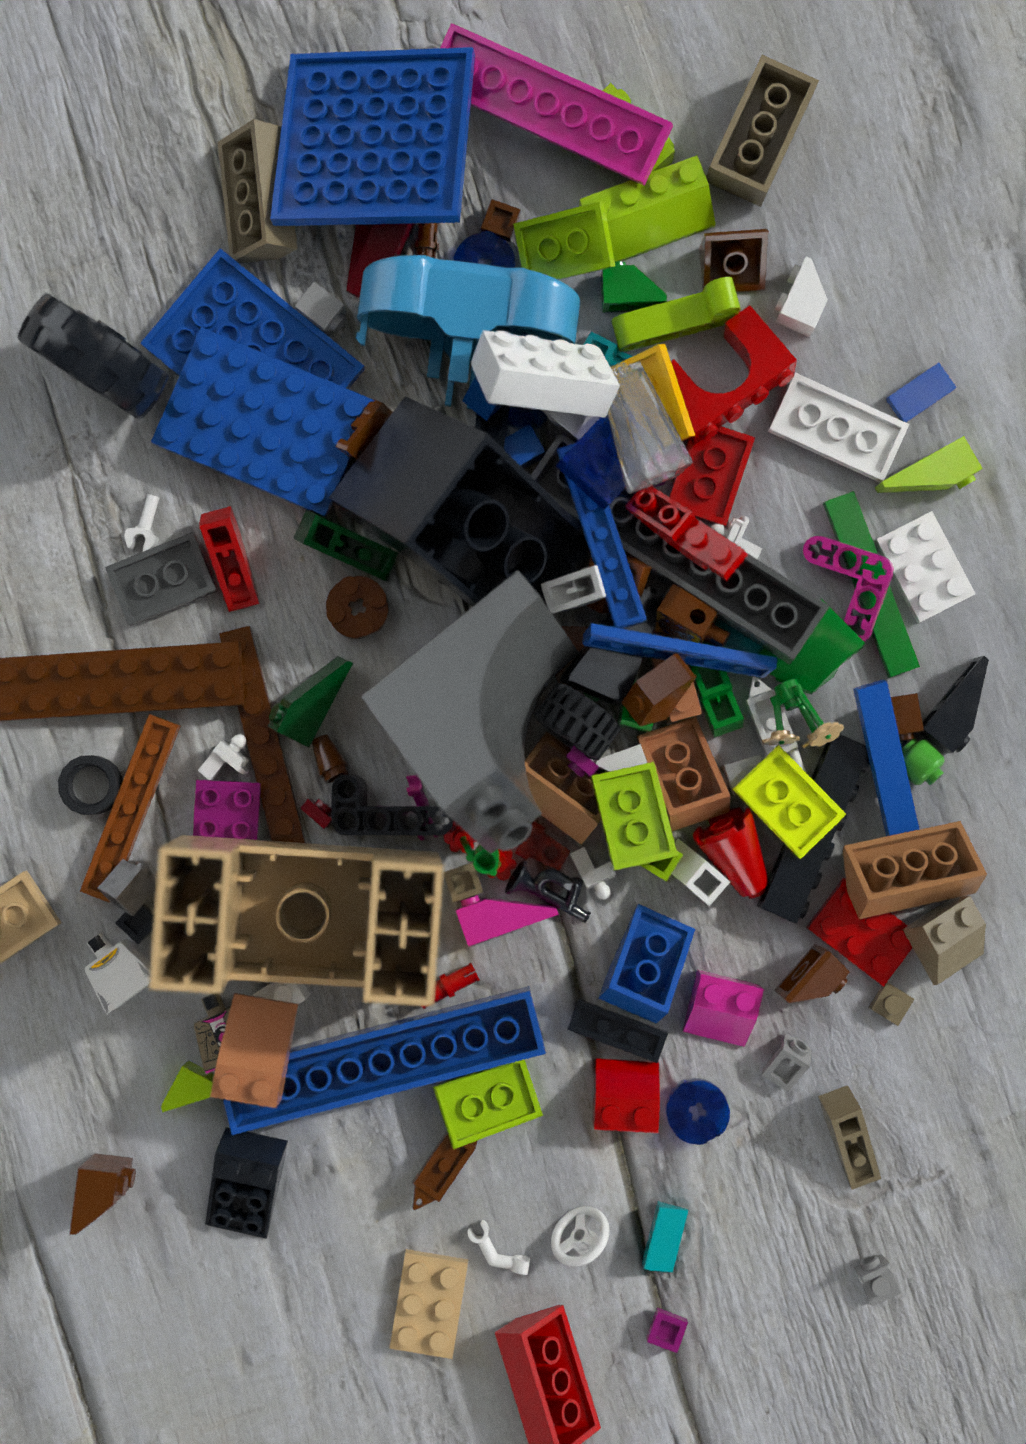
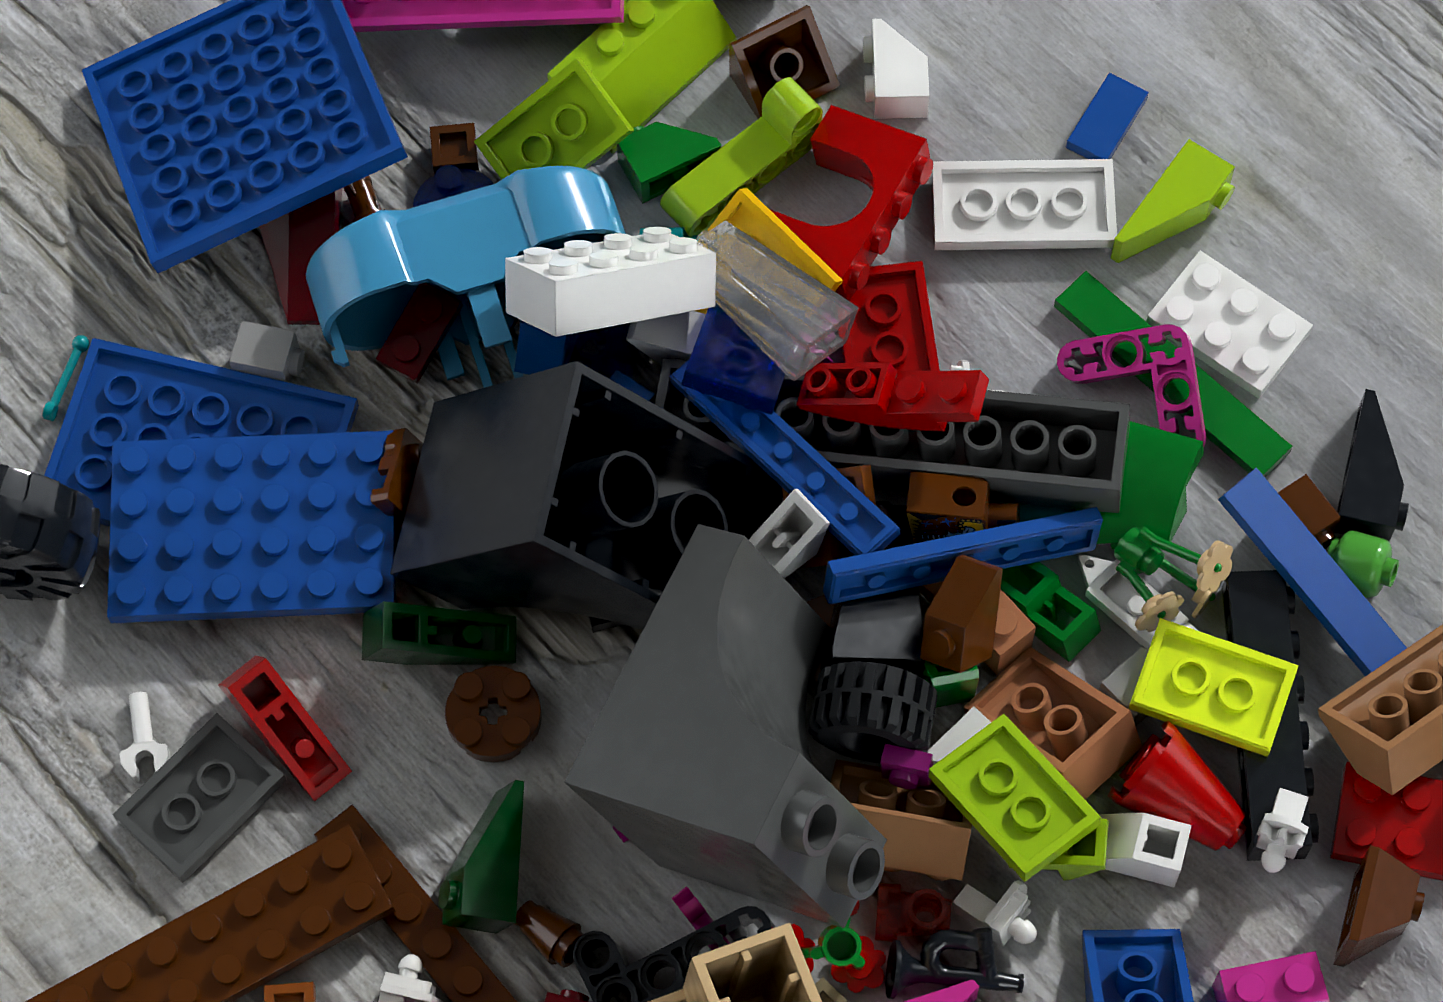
camera: 25 degrees left, 20 degrees down
(213, 247) = (79, 344): none -> teal hinge
(248, 180) = (103, 257): dark tan slope -> none
(417, 342) = (419, 332): none -> dark red plate
(782, 909) = (1282, 830): none -> white piece

